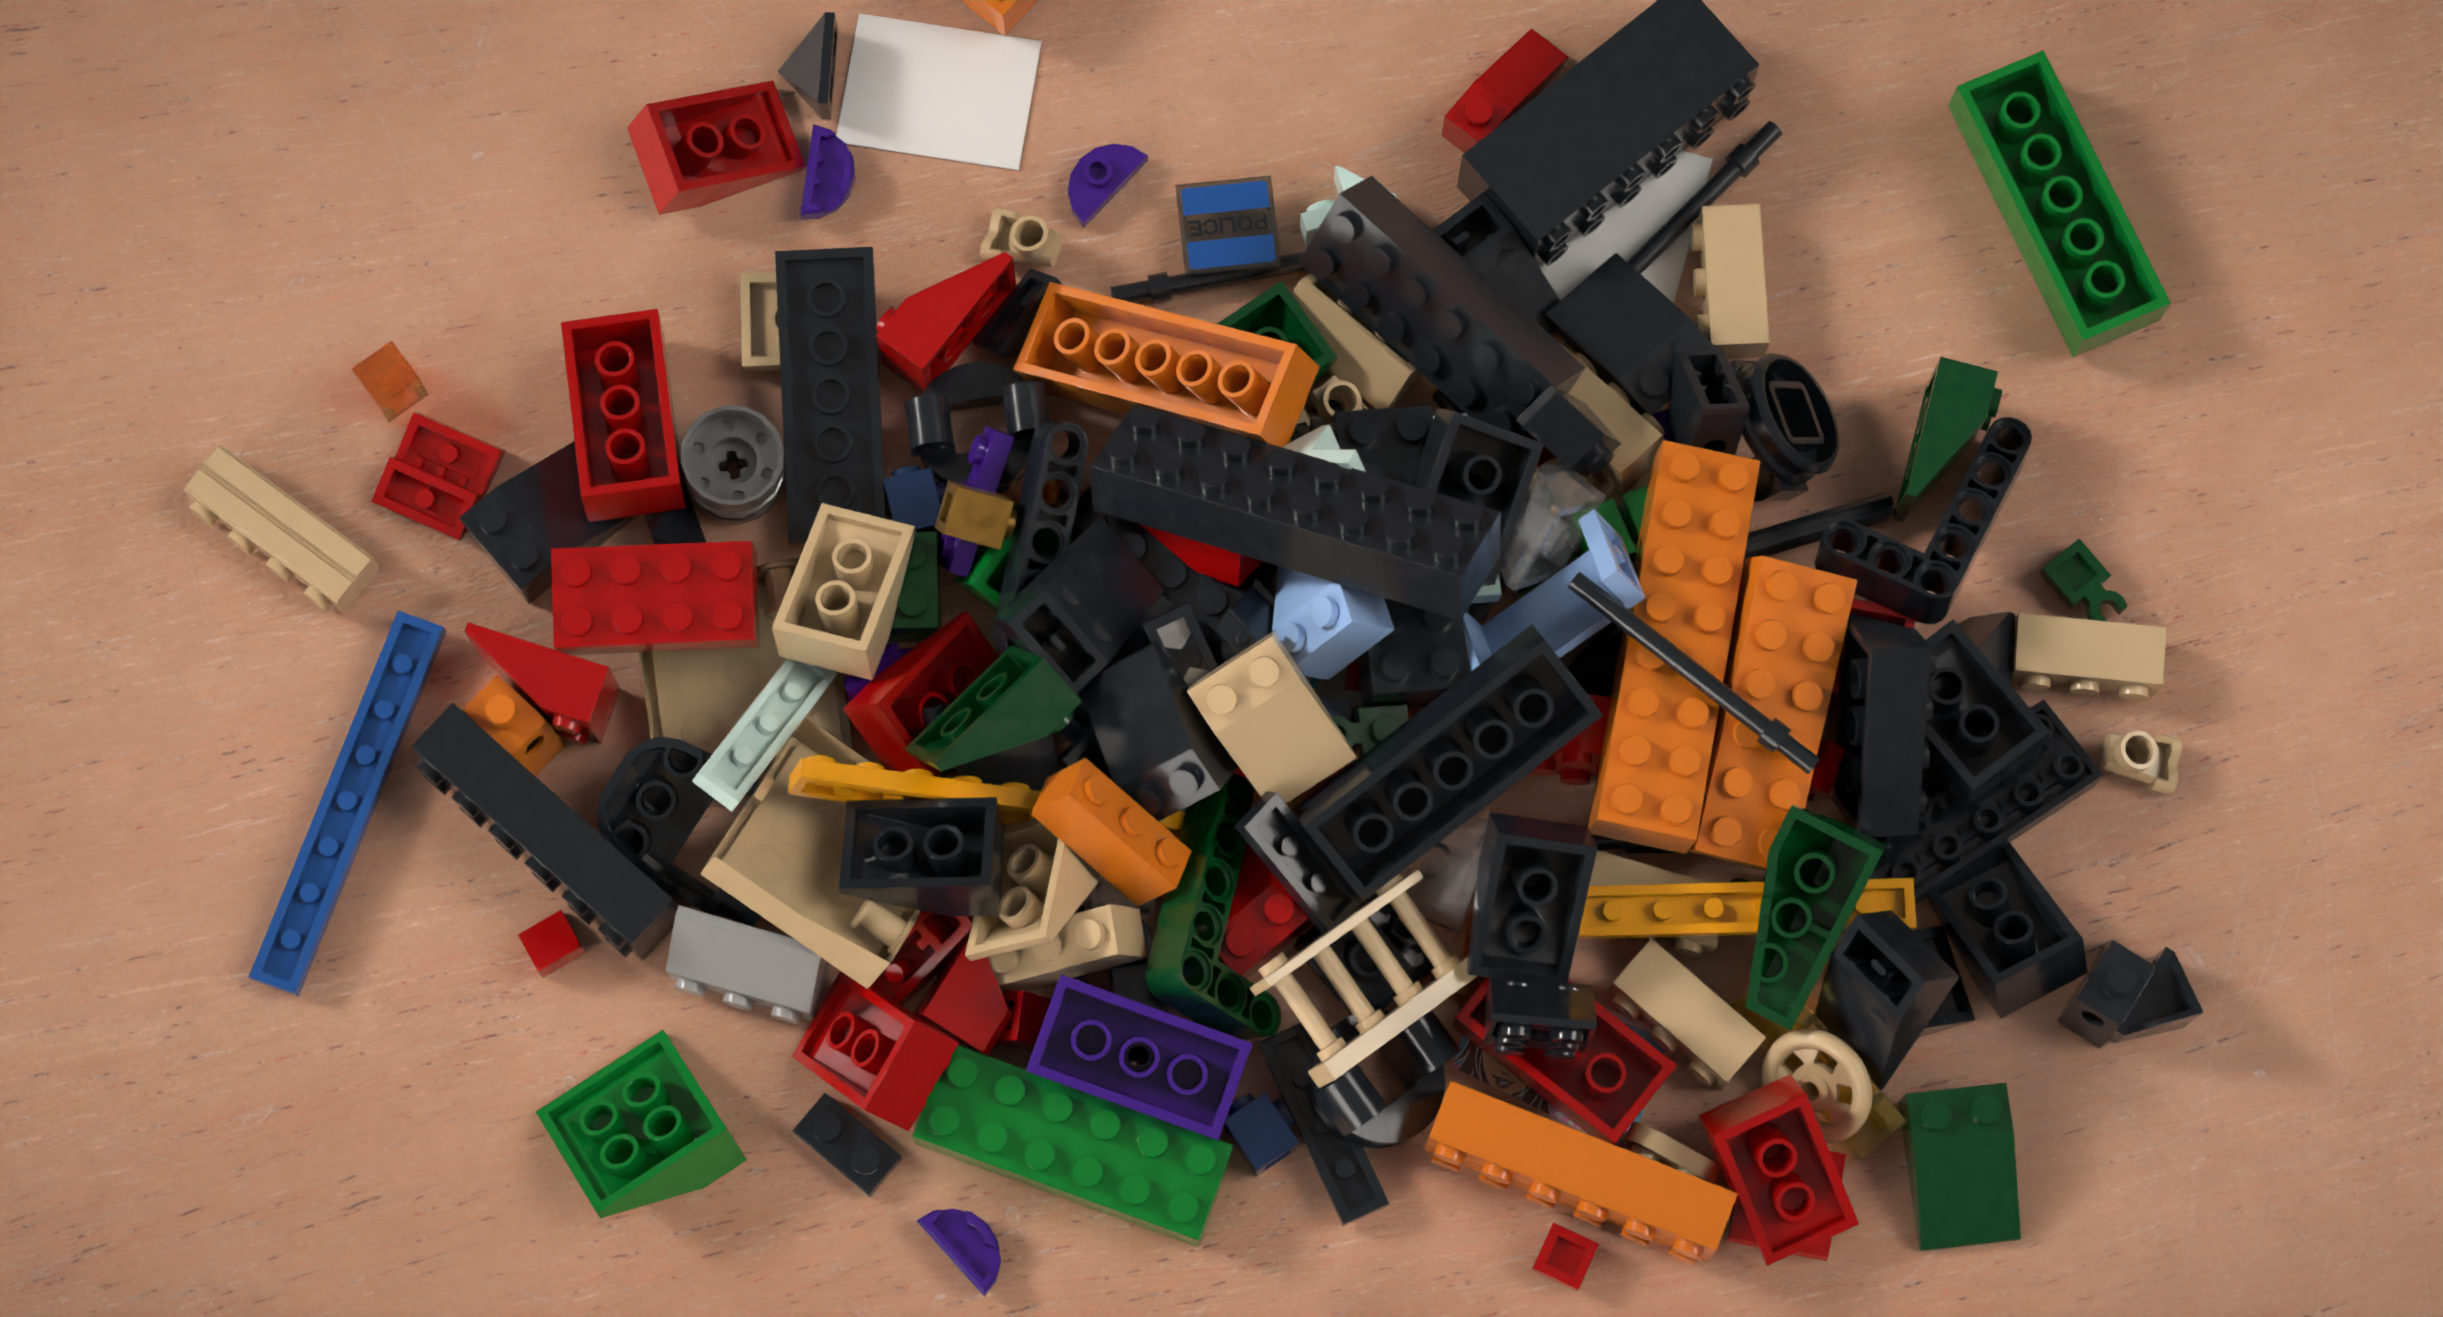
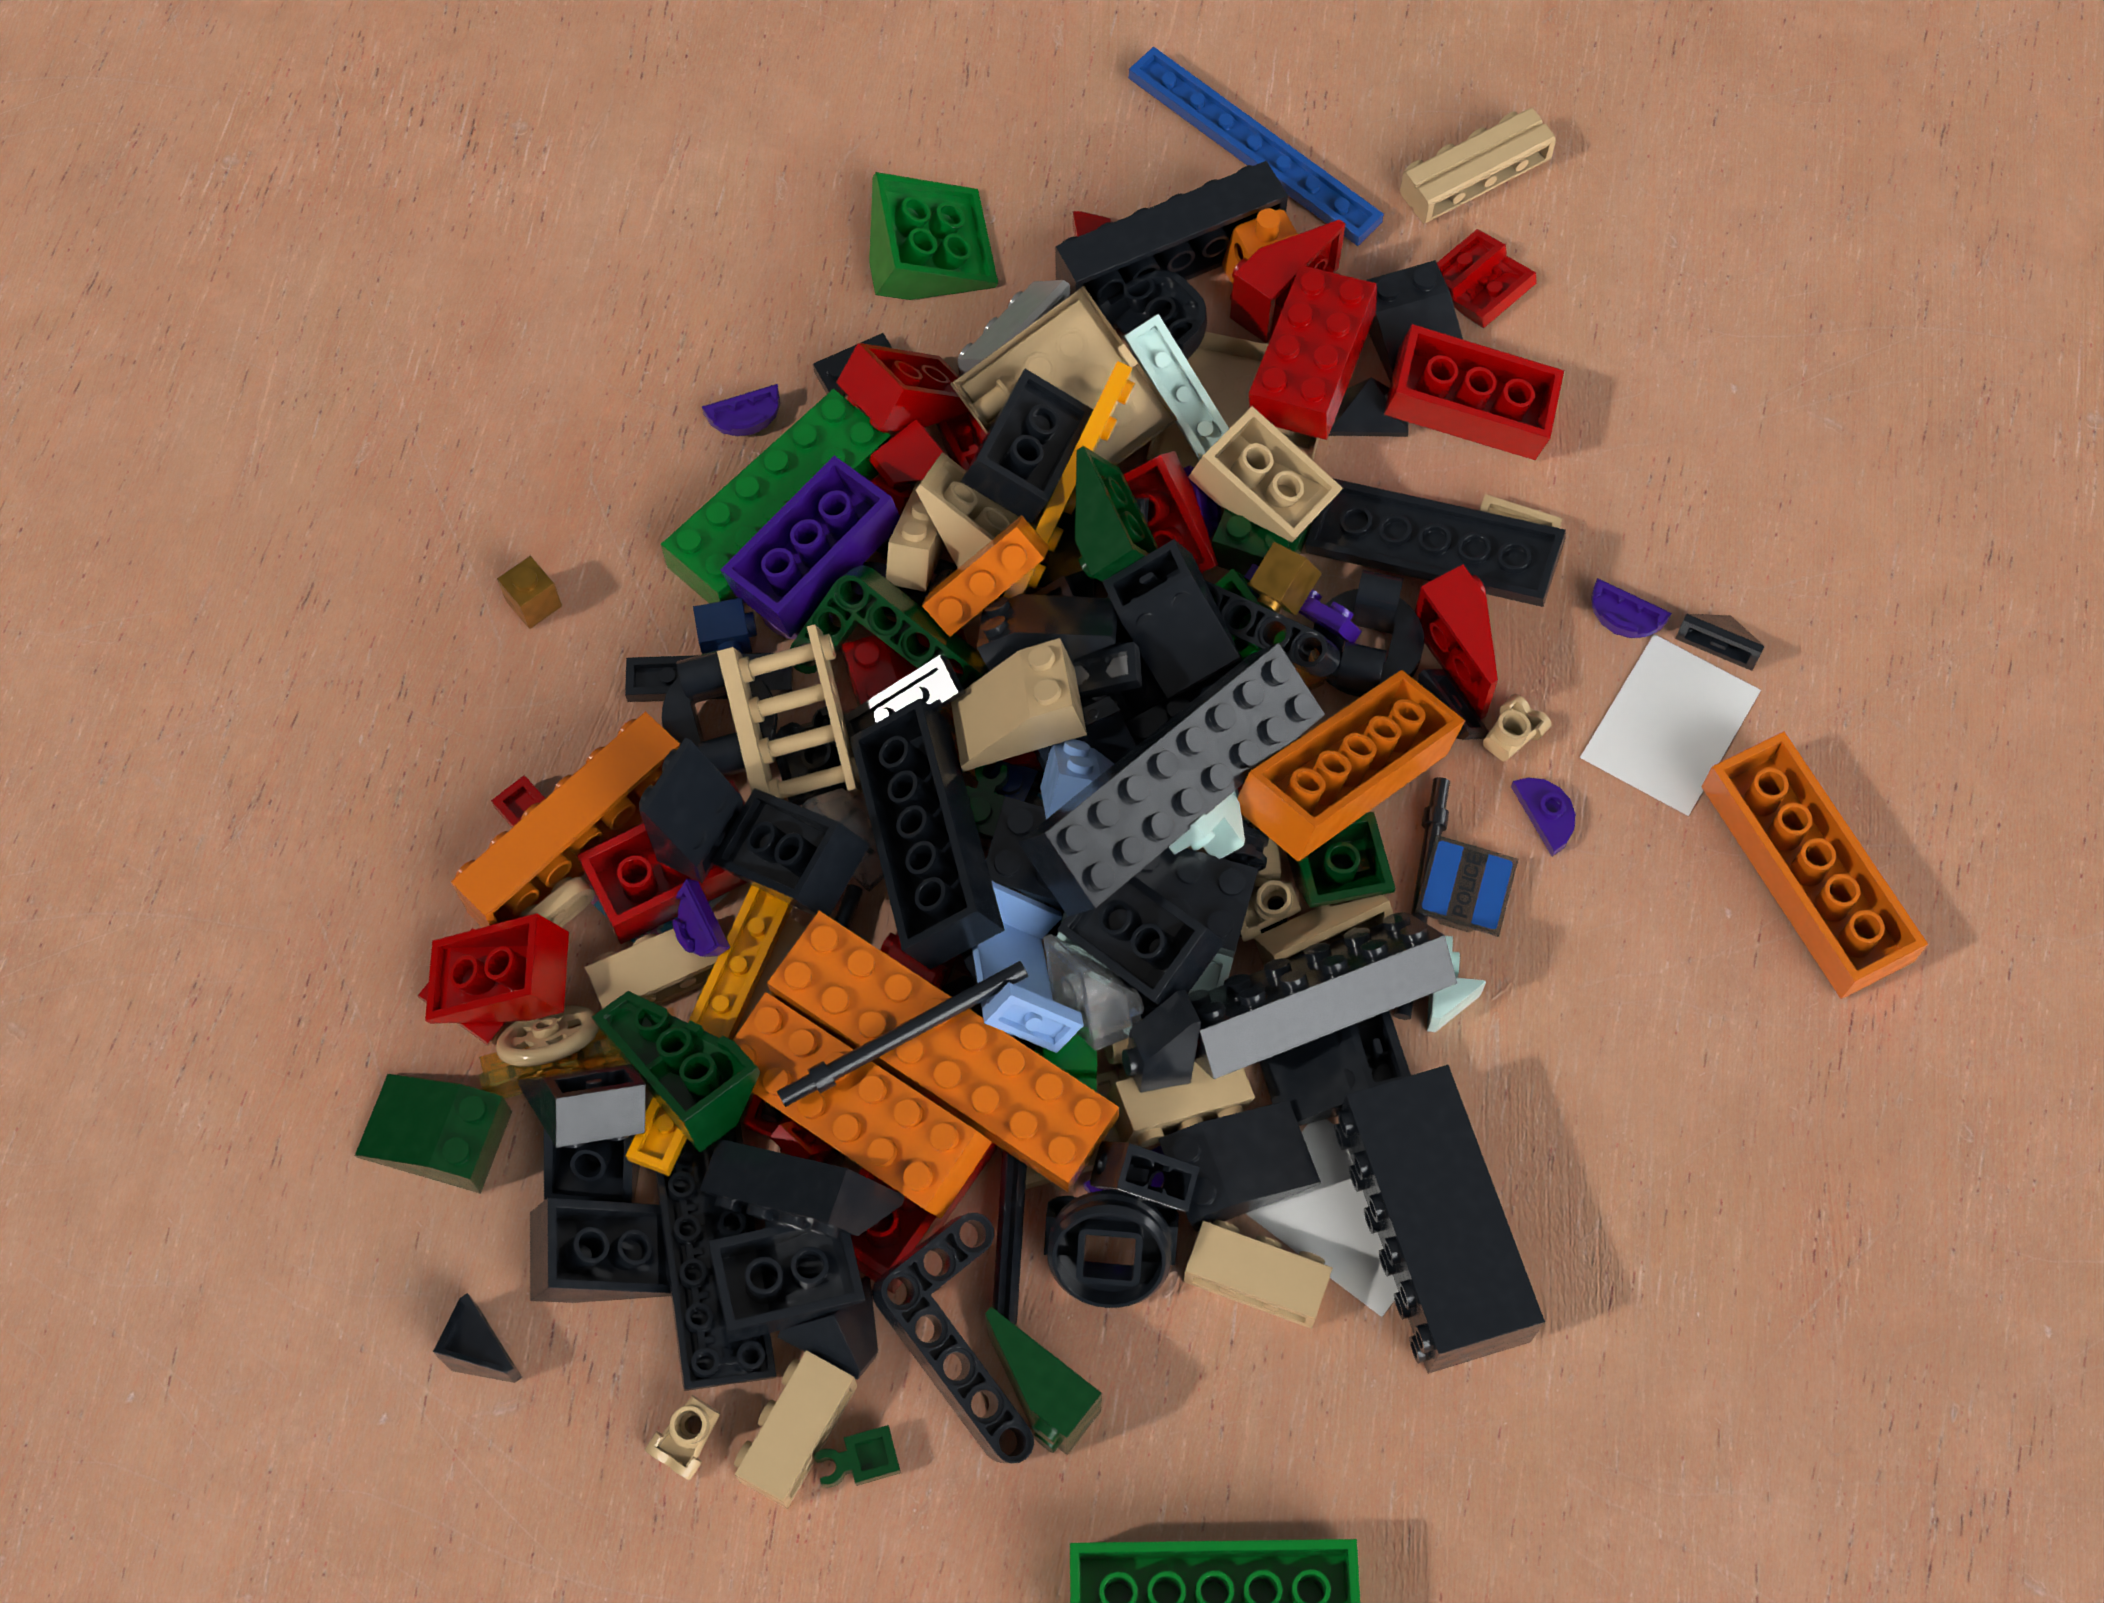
camera: 115 degrees right, 10 degrees down
(390, 381) = (1565, 263): clear orange brick -> none
(714, 145) = (1679, 541): red slope -> none
(727, 437) = (1409, 434): flat silver wheel -> none
(915, 497) = (1334, 568): dark blue brick -> none
(1502, 90) = (1510, 1157): red slope -> none
(1638, 974) = (696, 923): none -> dark purple plate
(1740, 162) = (1366, 1334): black bar -> none
(2106, 991) = (505, 1309): black torso -> none

